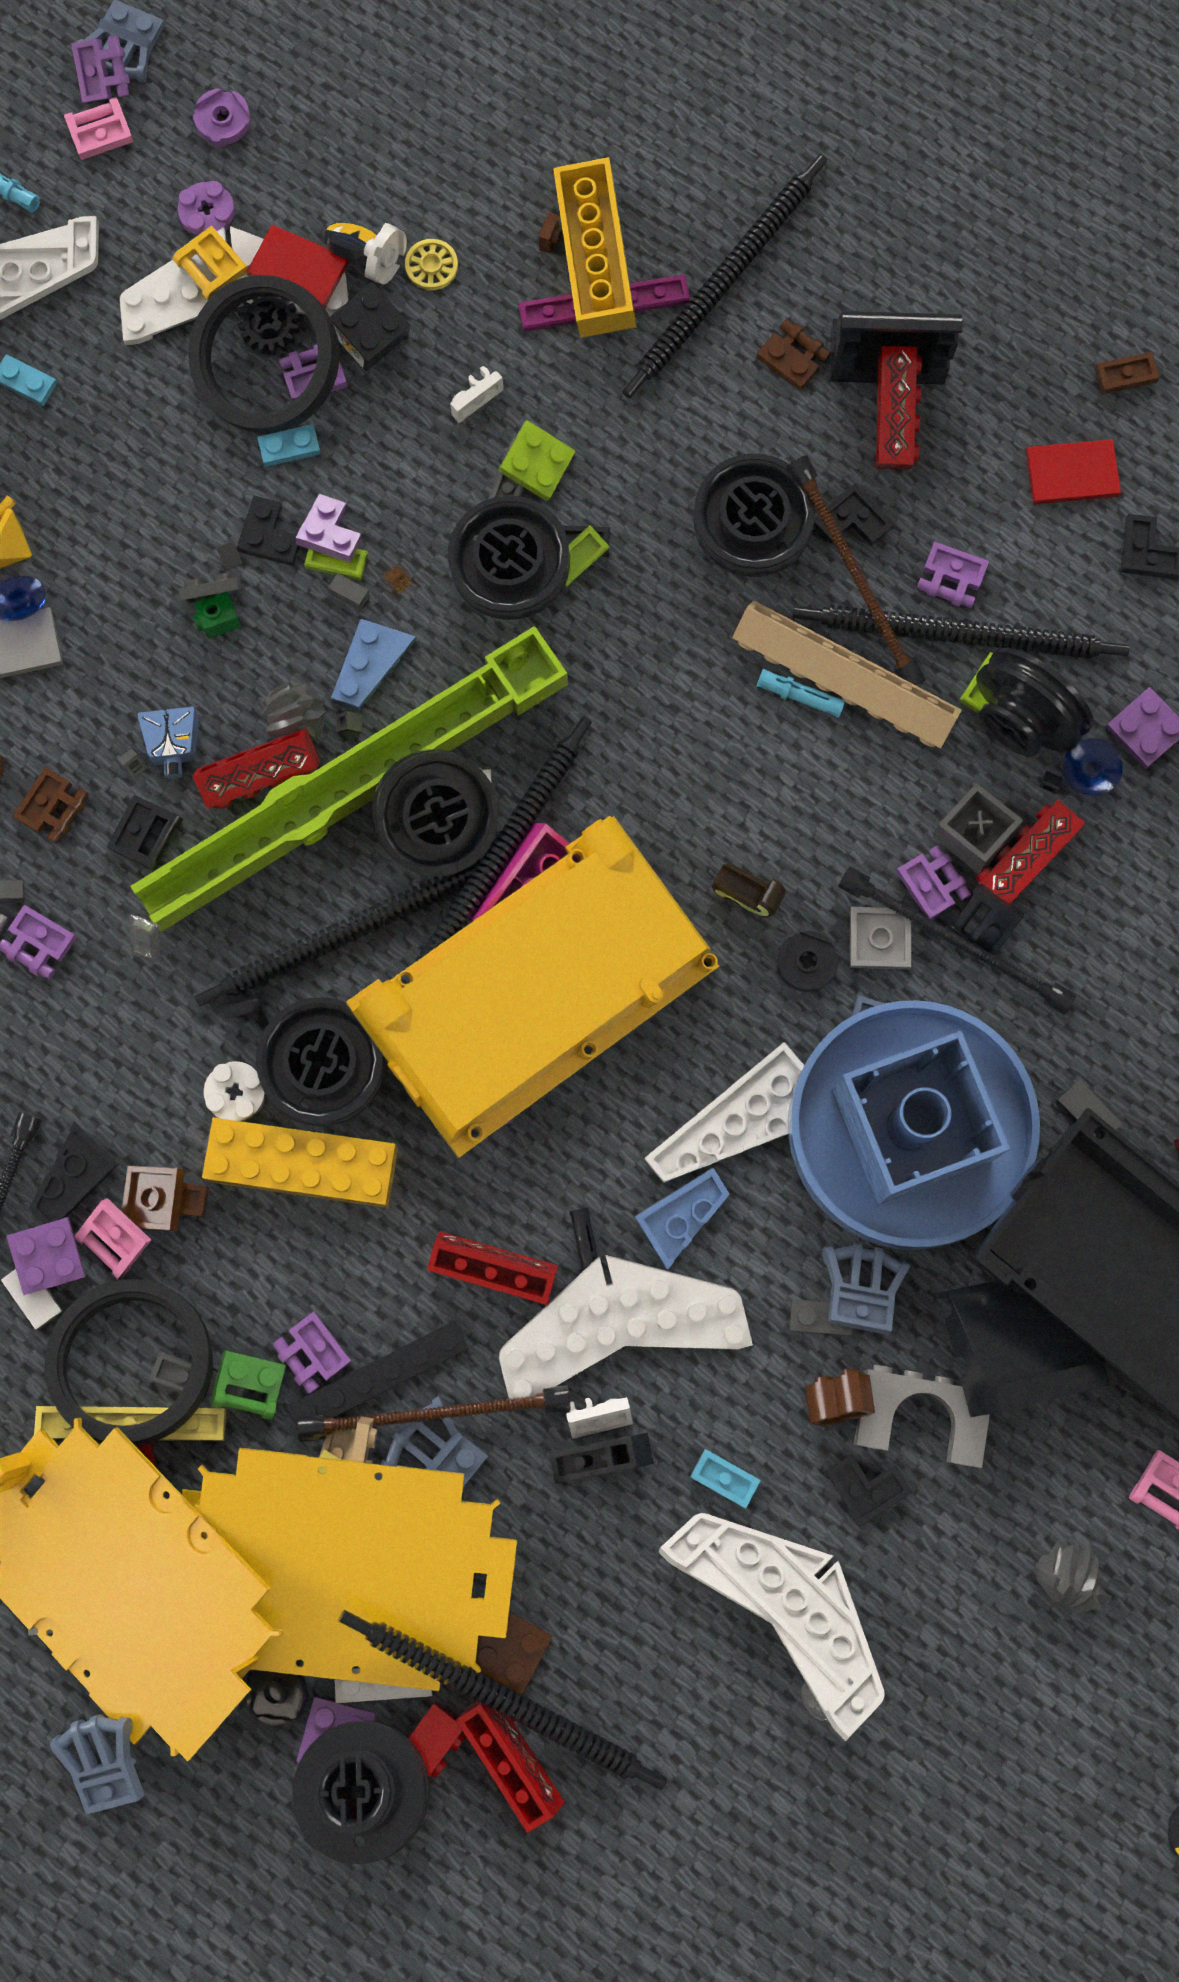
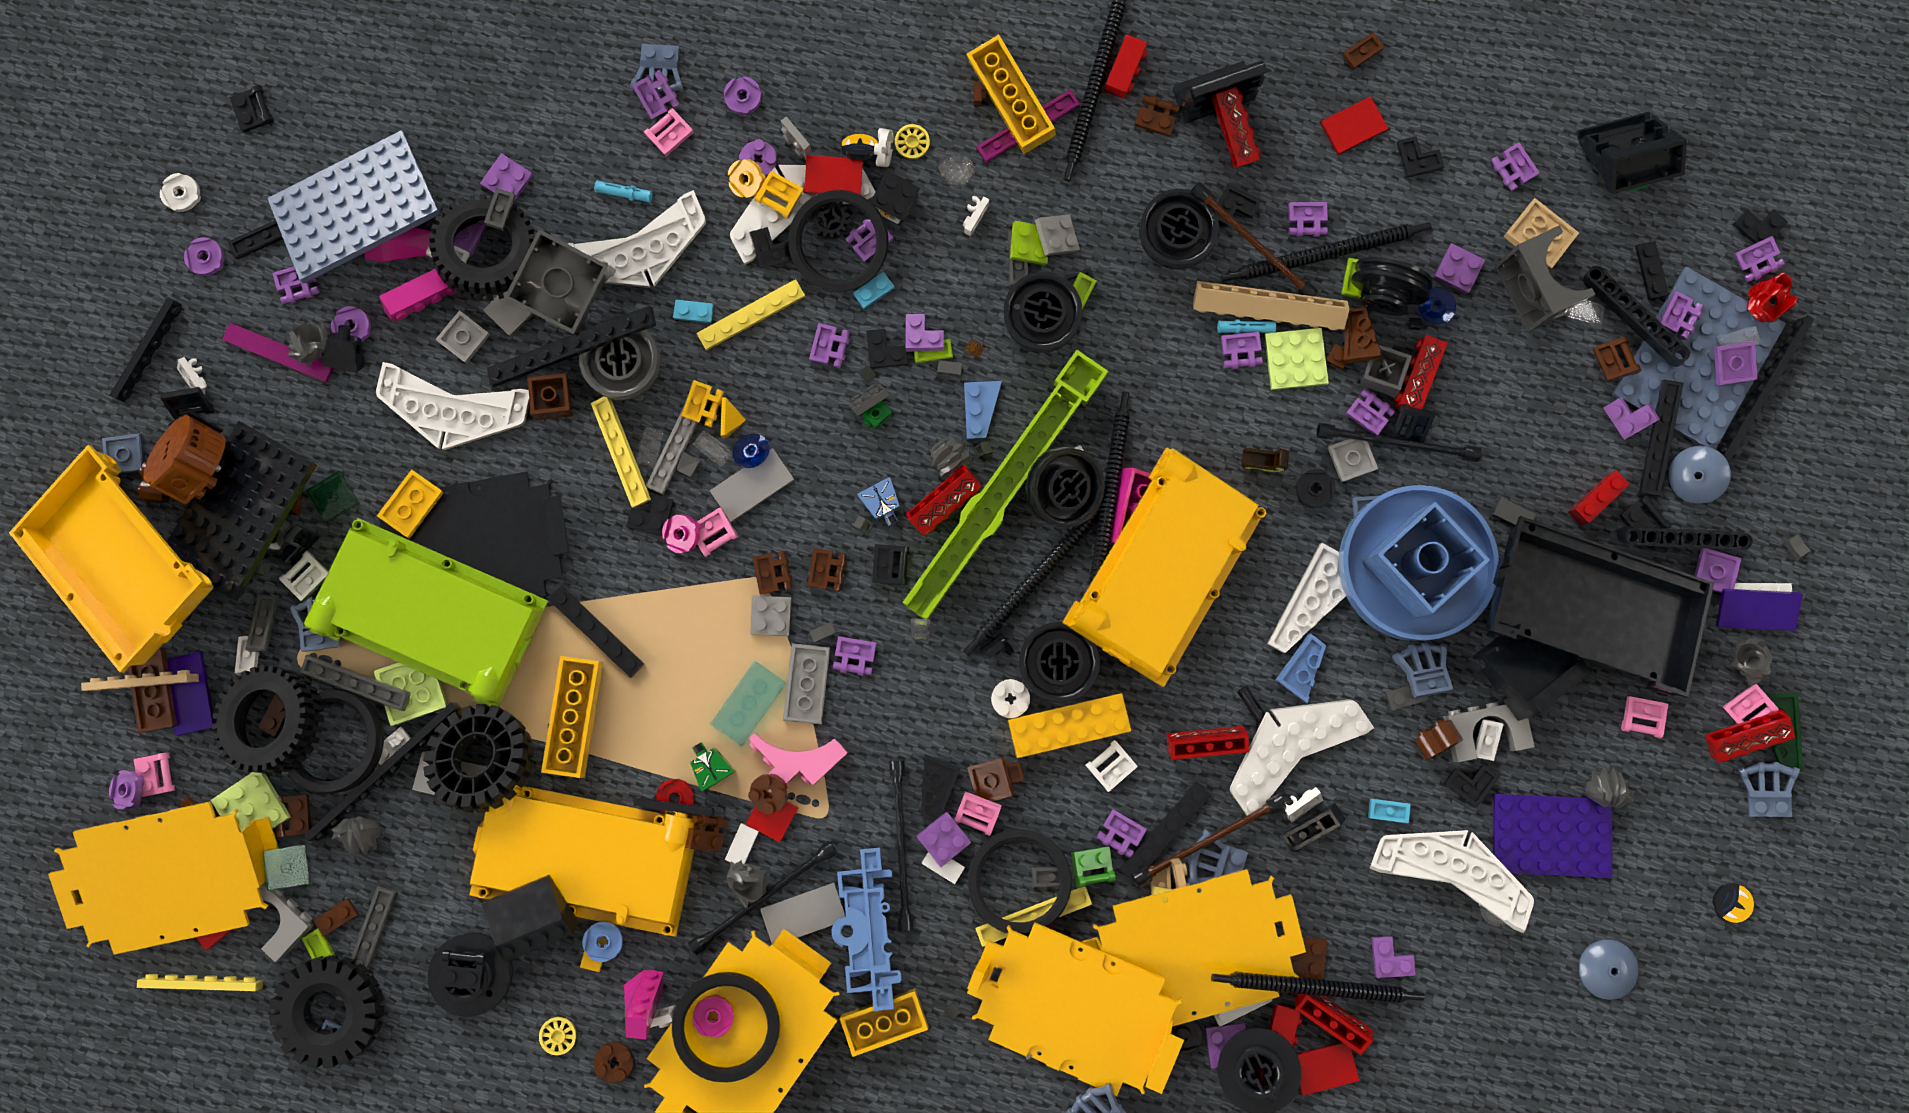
camera: 20 degrees left, 5 degrees up
(102, 414) = (751, 314): none -> light yellow plate
(158, 335) = (765, 251): none -> black plate
(185, 491) = (823, 344): none -> medium lavender plate
(188, 224) = (755, 176): none -> yellow plate
(264, 194) = (793, 136): none -> light grey plate
(341, 1257) = (1116, 770): none -> white plate
(469, 1834) = (1326, 1068): none -> red tile
(474, 323) = (957, 170): none -> clear hair
(579, 463) = (1057, 235): none -> light grey plate
(630, 1713) = (1386, 963): none -> medium lavender plate
(775, 271) = (1126, 67): none -> red brick
(780, 714) = (1241, 344): none -> medium lavender plate
(855, 766) = (1296, 359): none -> yellowish green plate
(916, 1430) = (1488, 739): none -> white plate
(918, 786) = (1336, 356): none -> reddish brown plate
(947, 1845) = (1596, 969): none -> sand blue dish
(959, 767) = (1360, 337): none -> reddish brown wing
(960, 1617) = (1552, 835): none -> dark purple plate

